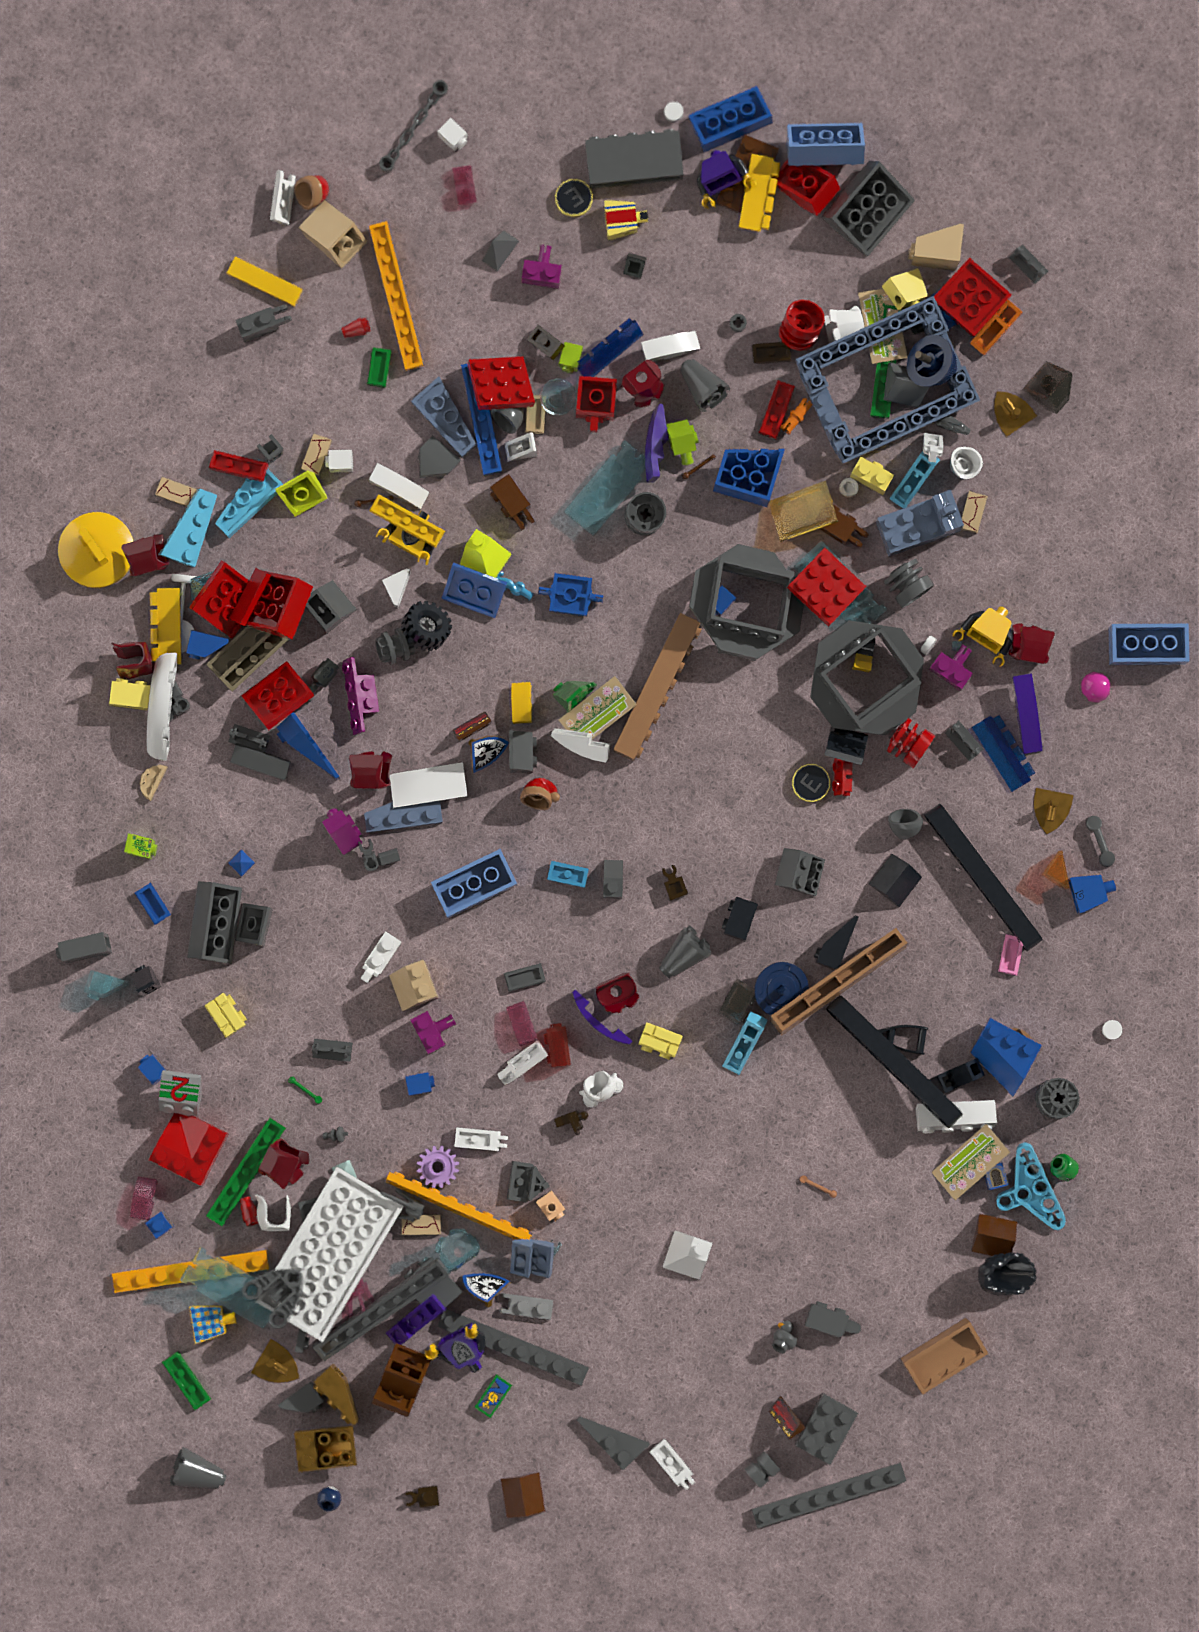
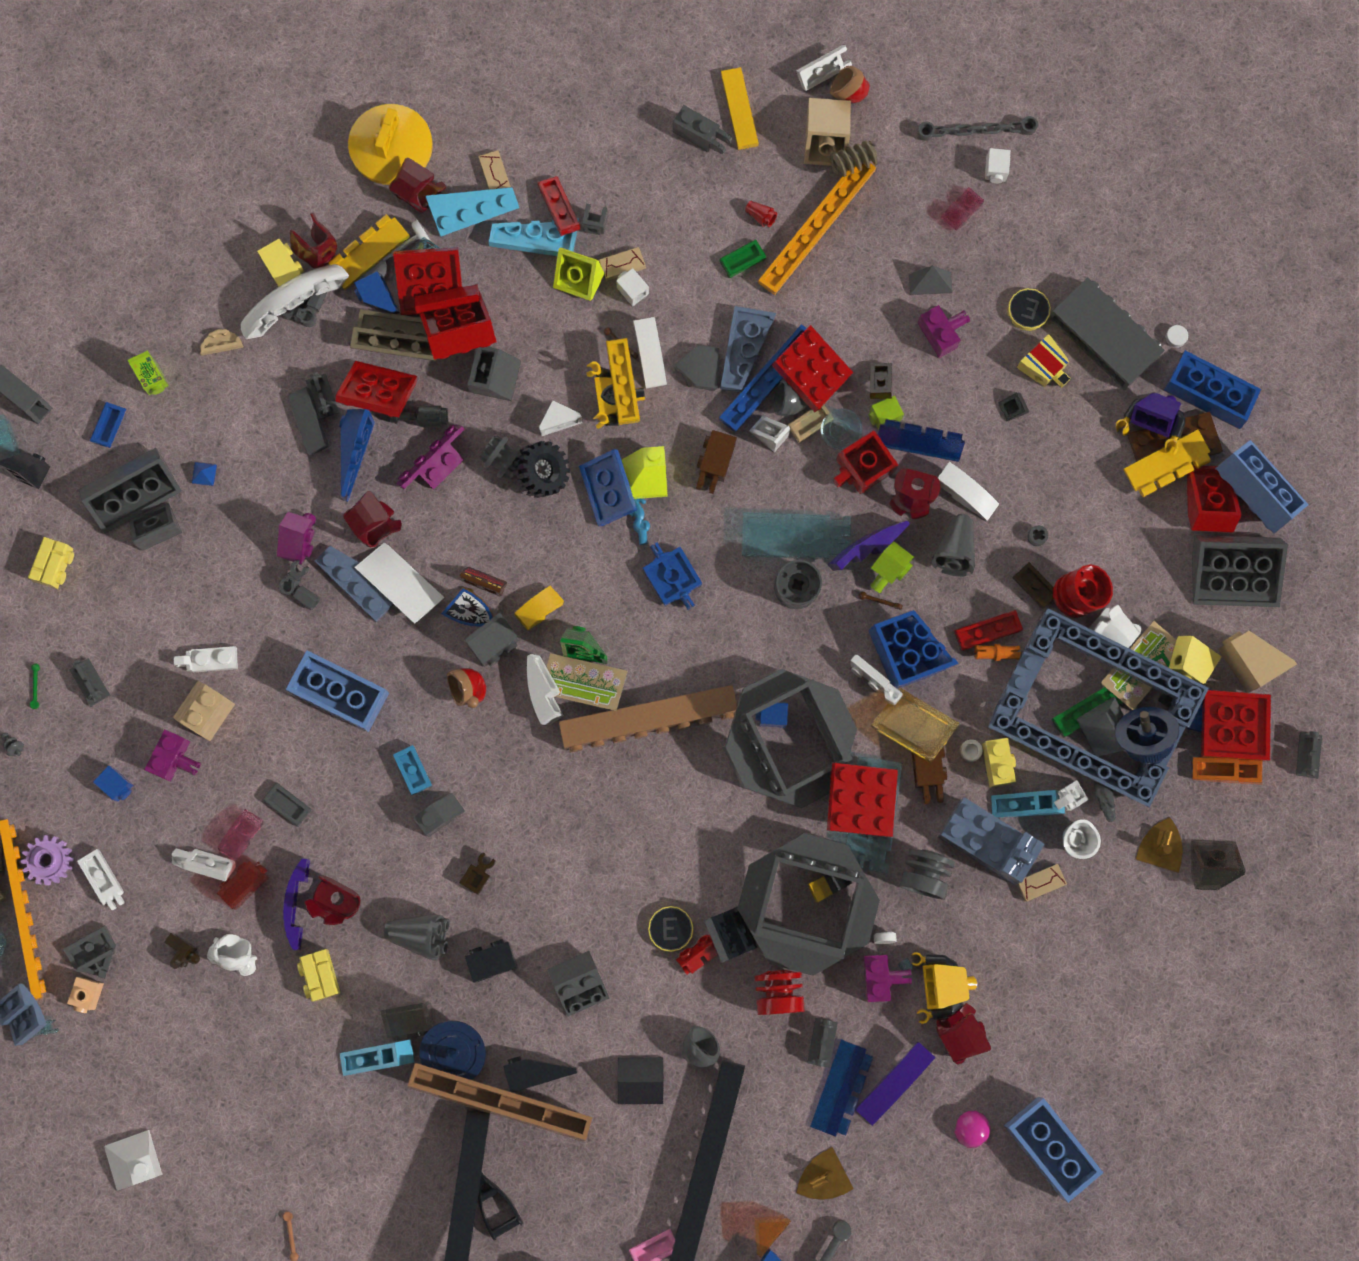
camera: 50 degrees right, 5 degrees down
(370, 231) = (853, 157): none -> dark tan piece
(751, 513) = (876, 680): none -> white hinge

